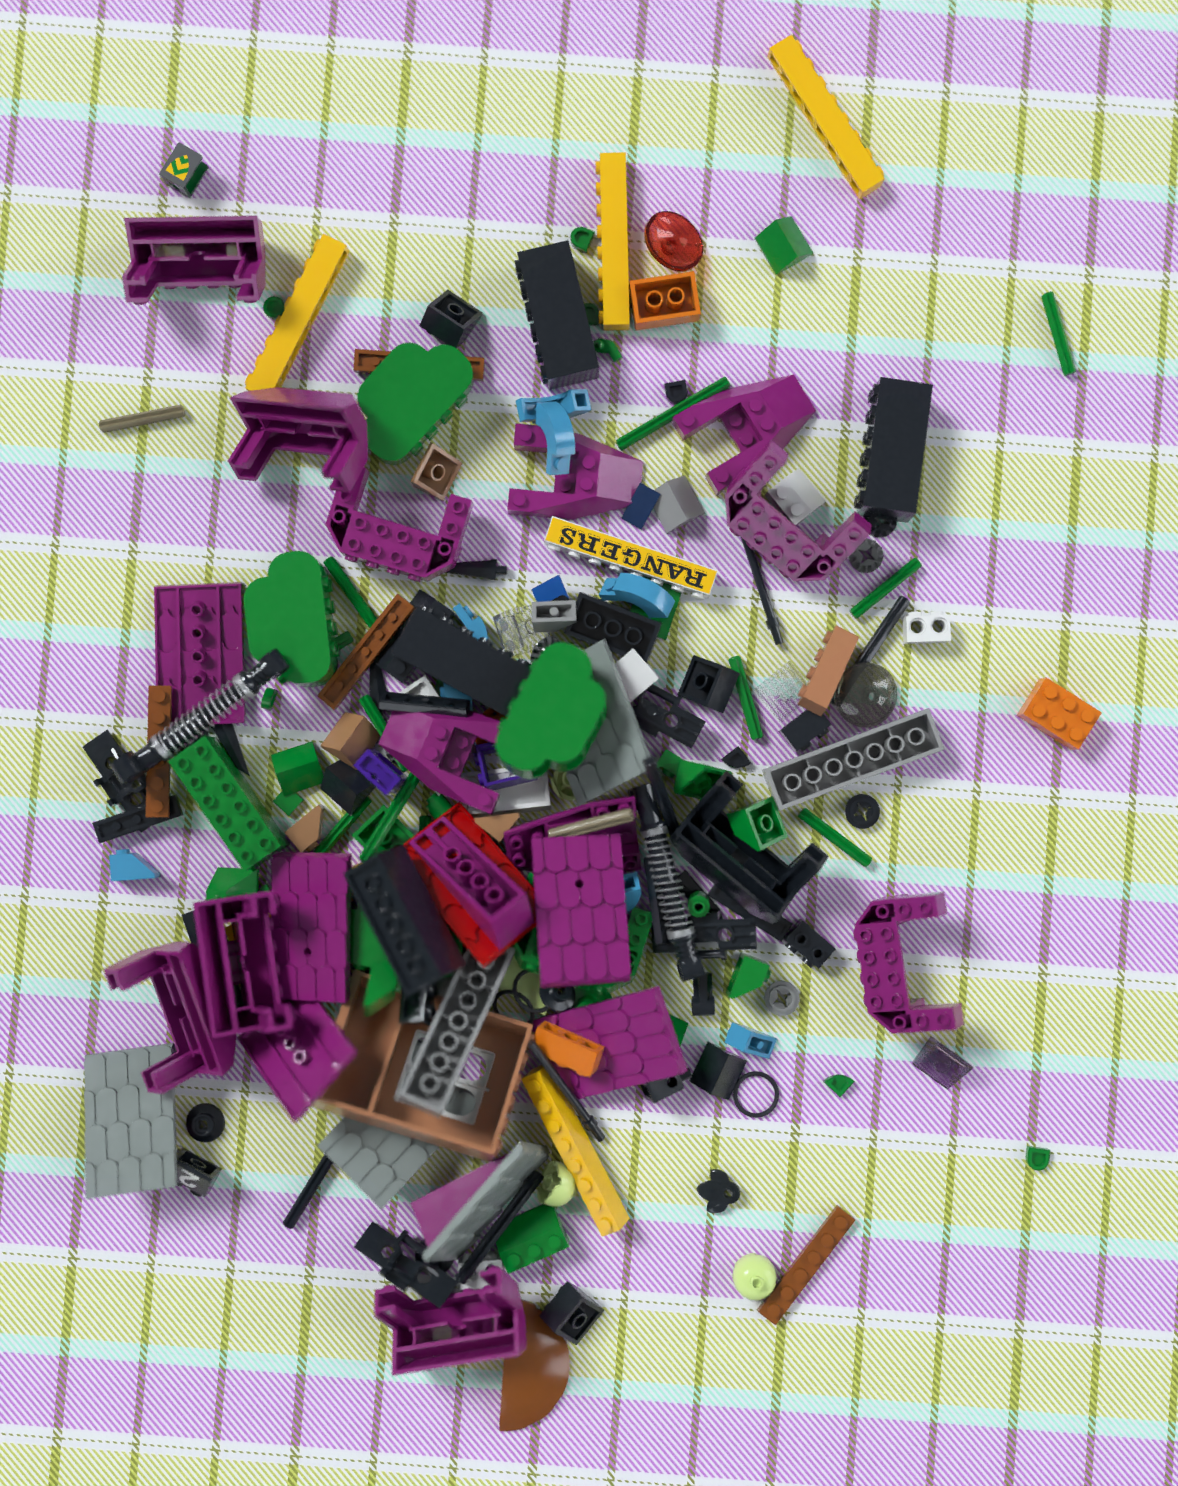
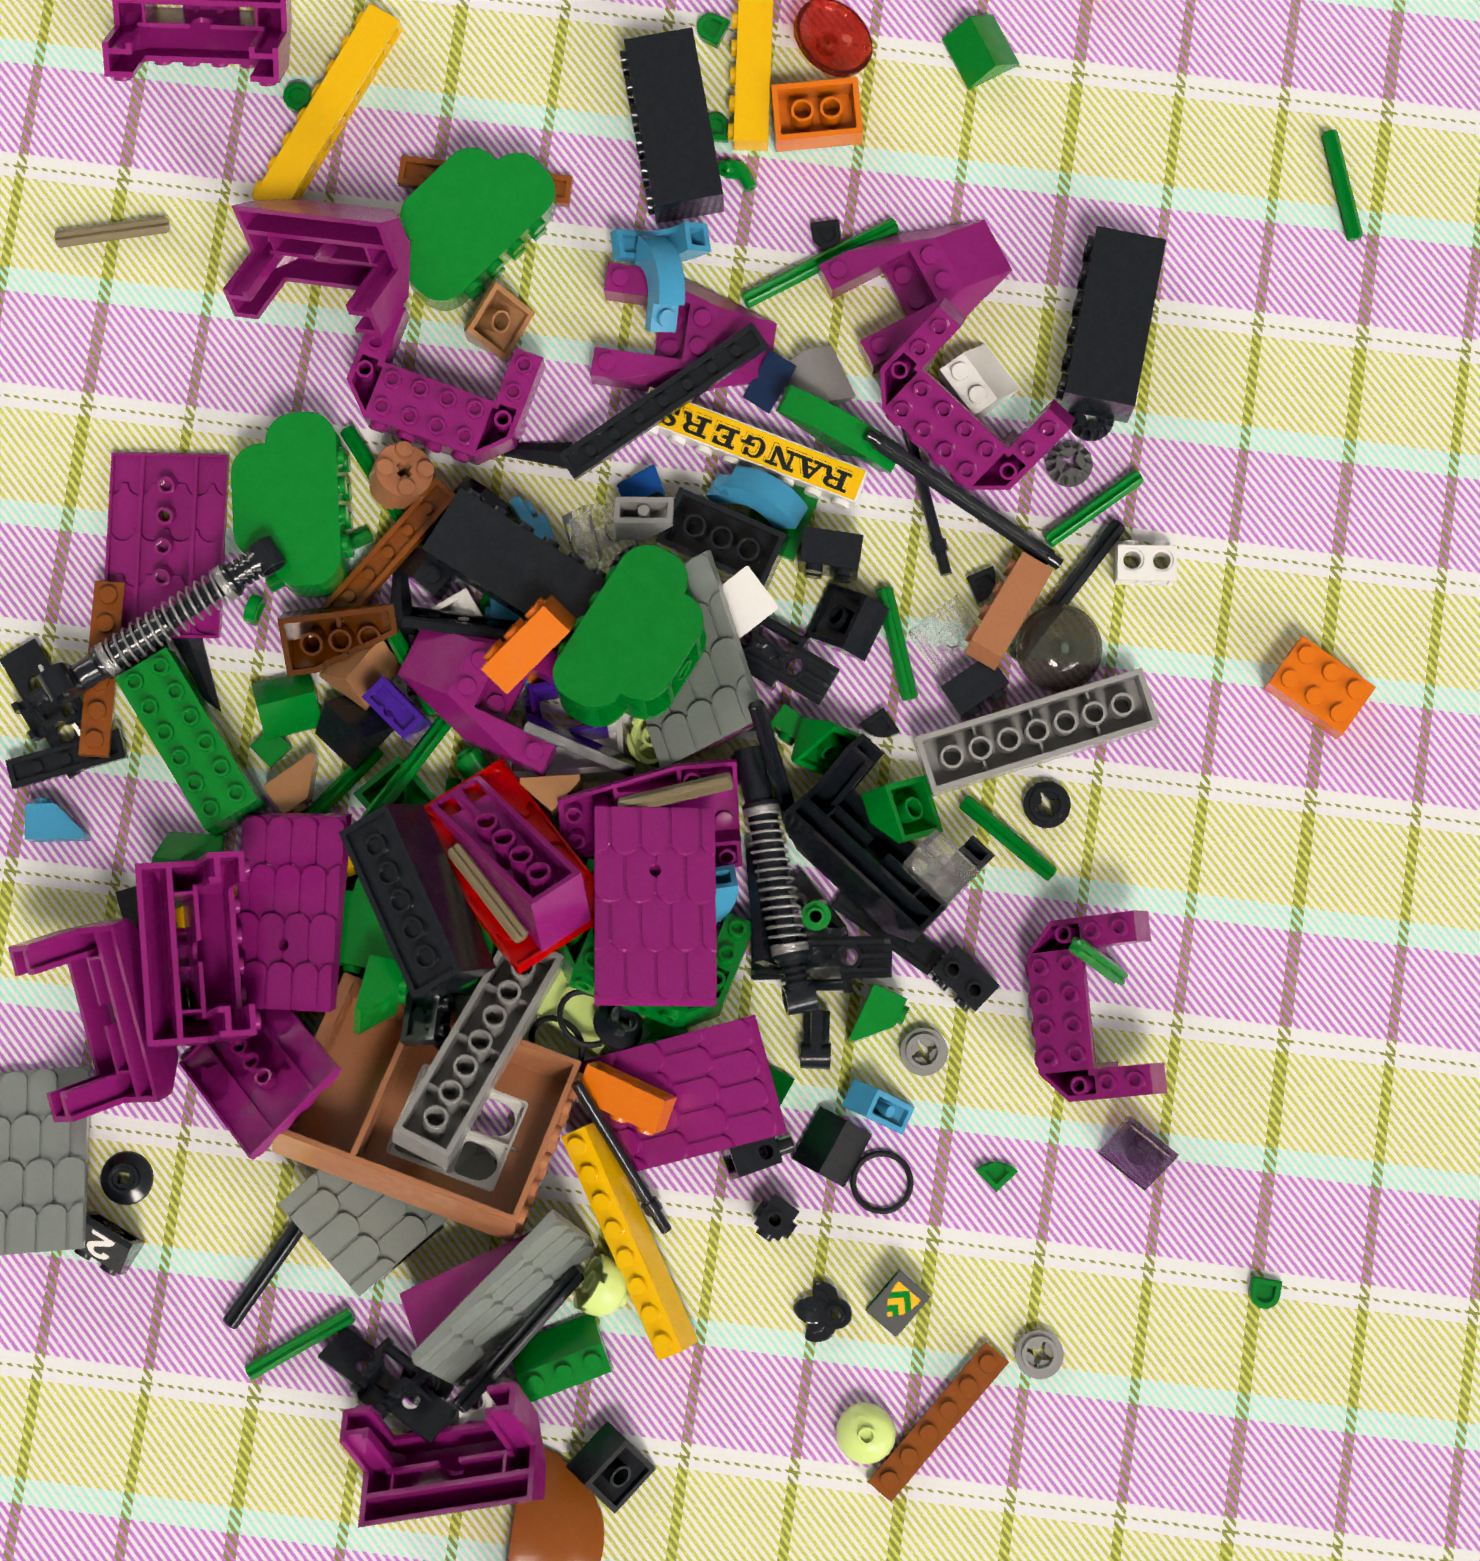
camera: 10 degrees right, 5 degrees down
(323, 716) = (331, 634): none -> reddish brown wedge
(340, 1236) = (299, 1343): none -> green axle
(370, 582) = (400, 475): none -> nougat brick
(450, 319) = (530, 123): black slope -> none
(456, 908) = (488, 893): none -> dark tan axle
(475, 721) = (527, 642): none -> orange brick
(516, 790) = (578, 744): none -> black tile
(563, 527) = (663, 401): none -> black plate
(681, 1119) = (784, 1210): none -> black brick
(694, 635) = (830, 554): none -> black brick
(695, 541) = (832, 427): none -> green slope
(773, 1183) = (897, 1303): none -> dark grey piece
(789, 588) = (963, 499): none -> black piece
(791, 870) = (940, 868): none -> clear slope
(806, 649) = (982, 584): none -> black tile
(881, 1221) = (1052, 1348): none -> light grey gear
(908, 929) = (1098, 961): none -> green axle

